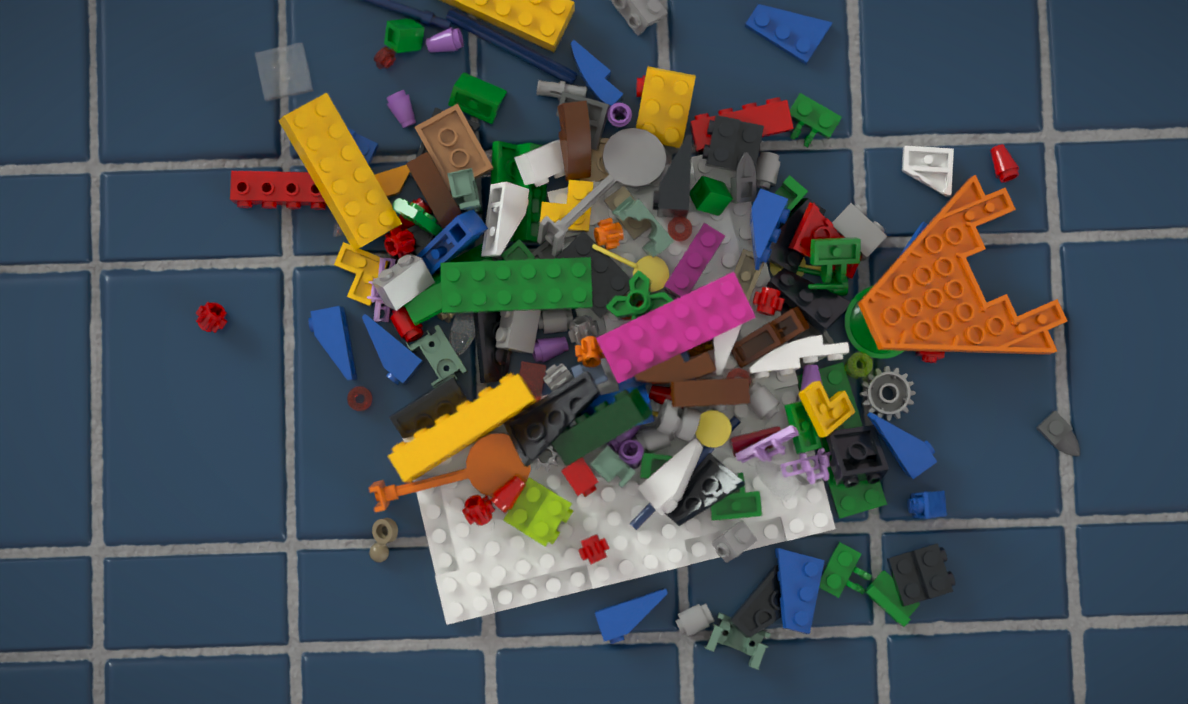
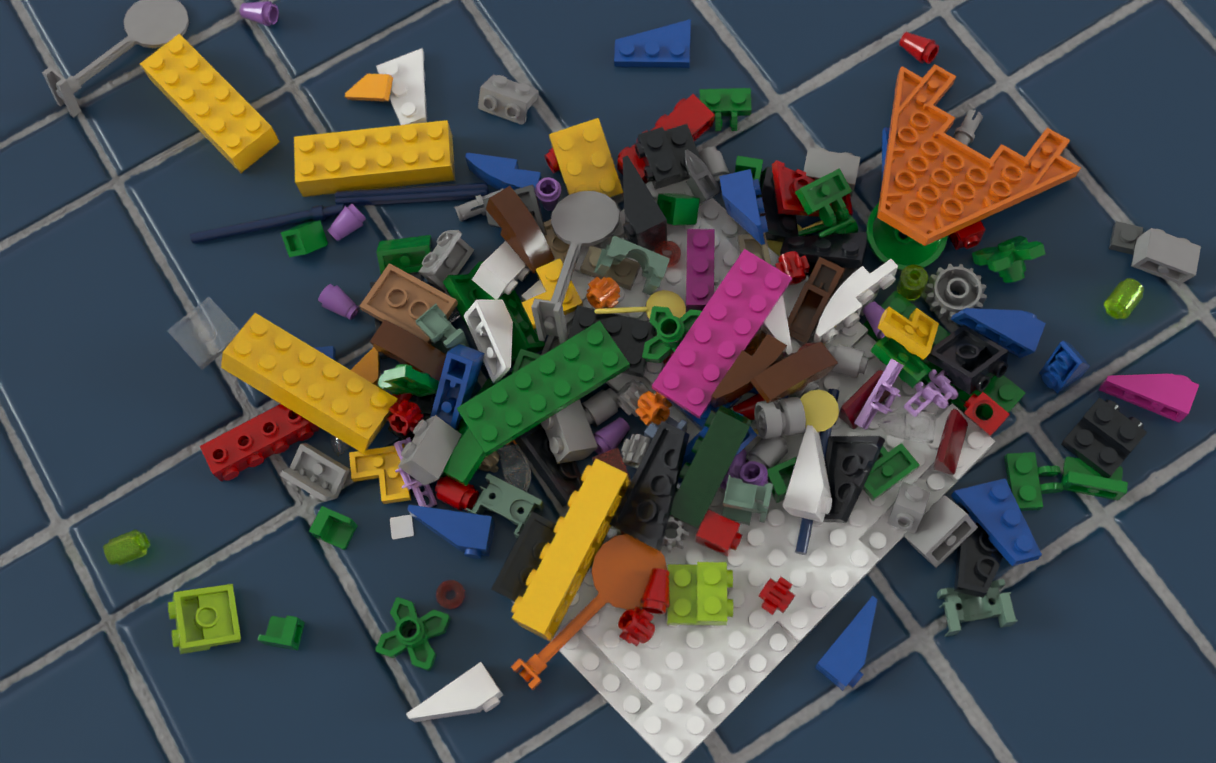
camera: 25 degrees left, 15 degrees down
(137, 217) = (126, 547): none -> clear neon green brick
(168, 309) = (204, 618): none -> lime plate
(211, 317) = (253, 600): red gear -> none
(220, 354) = (283, 632): none -> green panel
(299, 295) = (333, 528): none -> green panel
(309, 244) = (316, 473): none -> light grey bracket
(316, 399) = (399, 640): none -> green plant
(330, 482) = (465, 695): none -> white slope
(333, 334) = (386, 544): blue slope -> none
(354, 322) = (401, 527): none -> white sticker
(379, 551) = (559, 737): dark tan plate -> none
(385, 58) = (297, 267): clear red plate -> none
(506, 123) = (446, 258): none -> light grey bracket
(694, 619) = (919, 612): light grey brick -> none
(748, 572) = (941, 531): none -> light grey brick
(798, 512) = (951, 443): none -> dark red slope
(835, 514) = (988, 426): none -> red brick
(930, 166) = (856, 85): white wing -> none
(947, 391) = (1009, 257): none -> green plant
(988, 263) = (966, 131): none -> light grey pin
(989, 569) = (1159, 393): none -> dark pink slope
(1014, 477) = (1124, 298): none -> clear neon green brick
(1071, 463) = (1166, 256): none -> light grey brick

